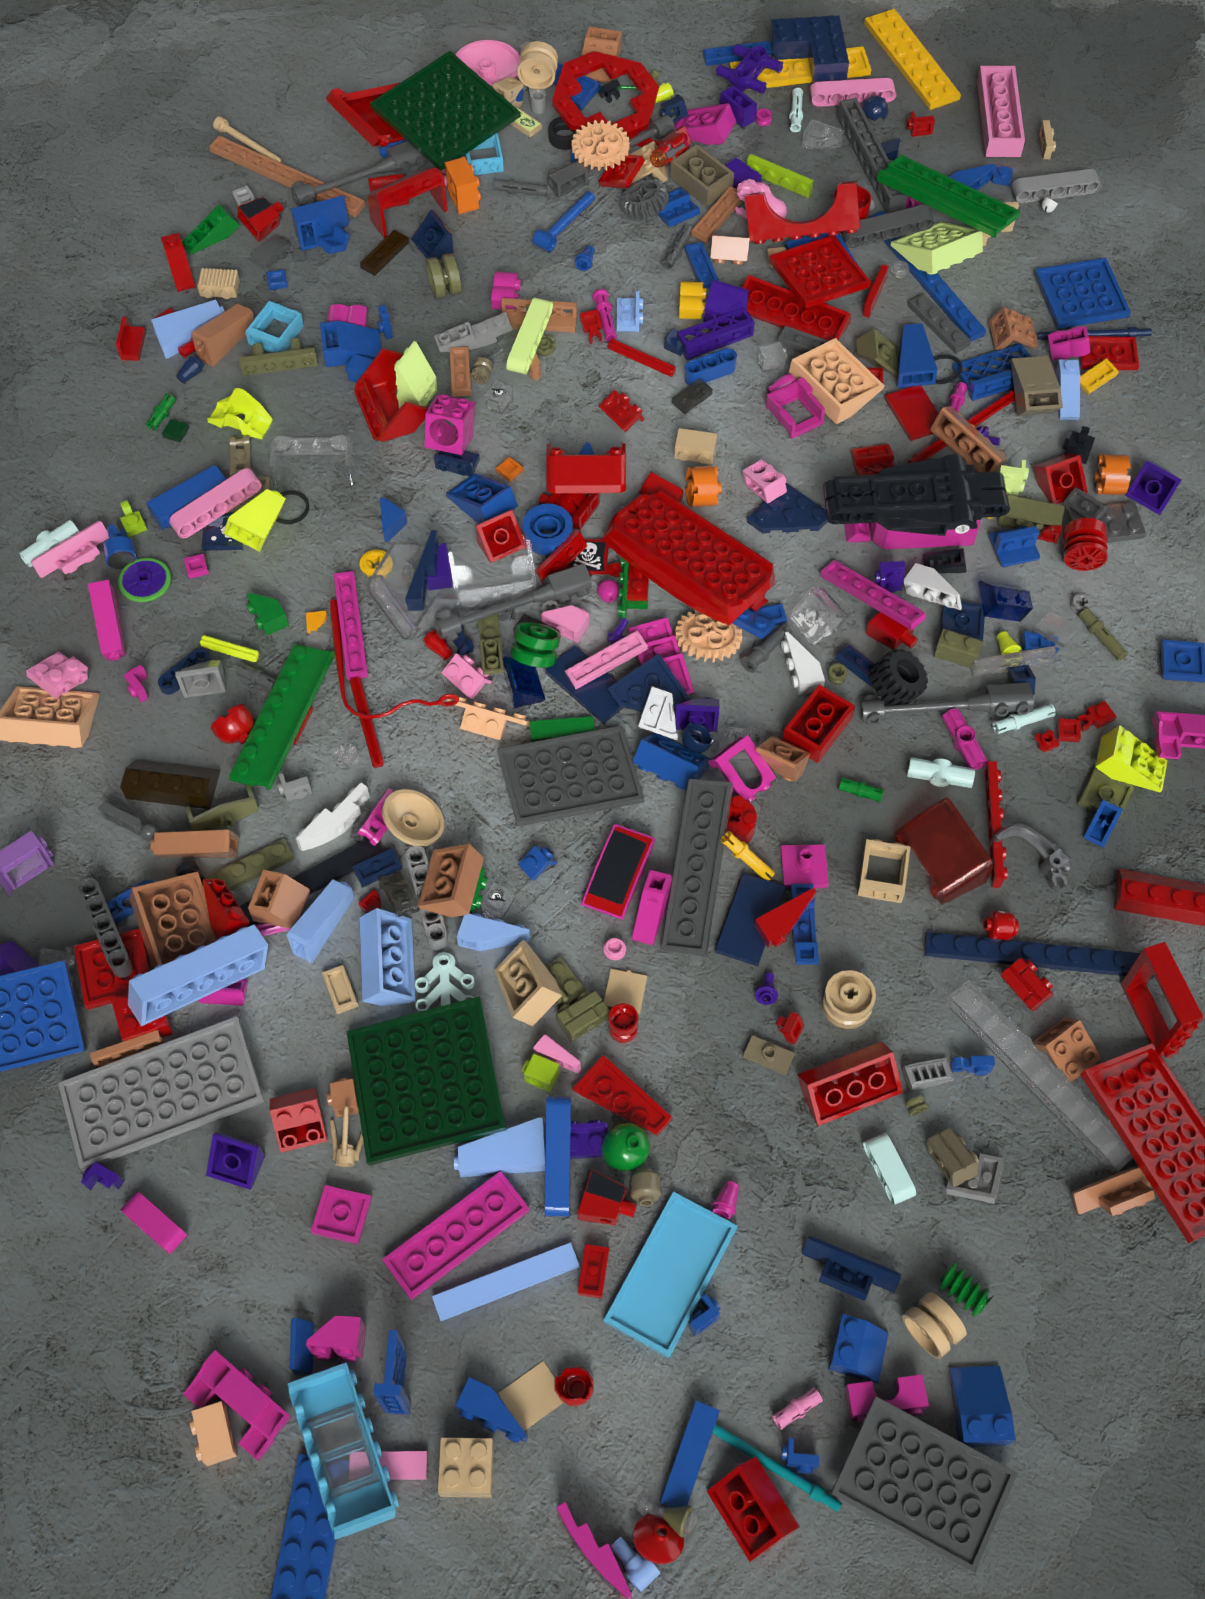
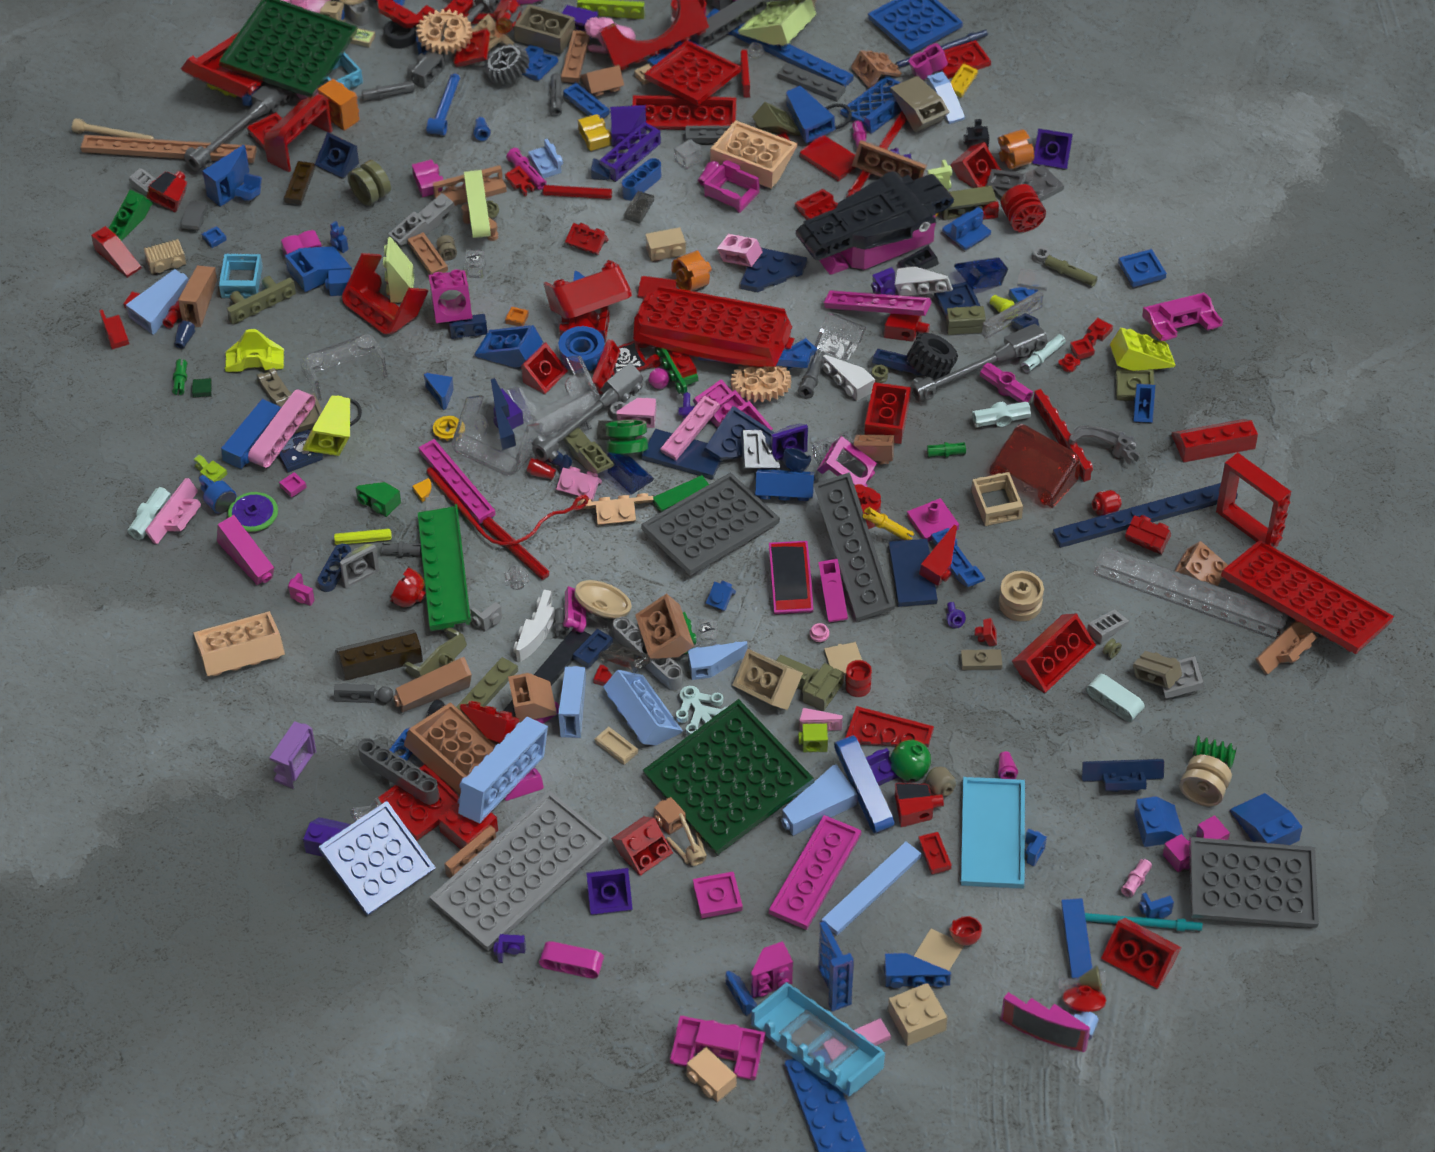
camera: 25 degrees left, 10 degrees down
(58, 674) = (227, 608): bright pink plate -> none
(975, 1064) = (1140, 603): blue plate -> none

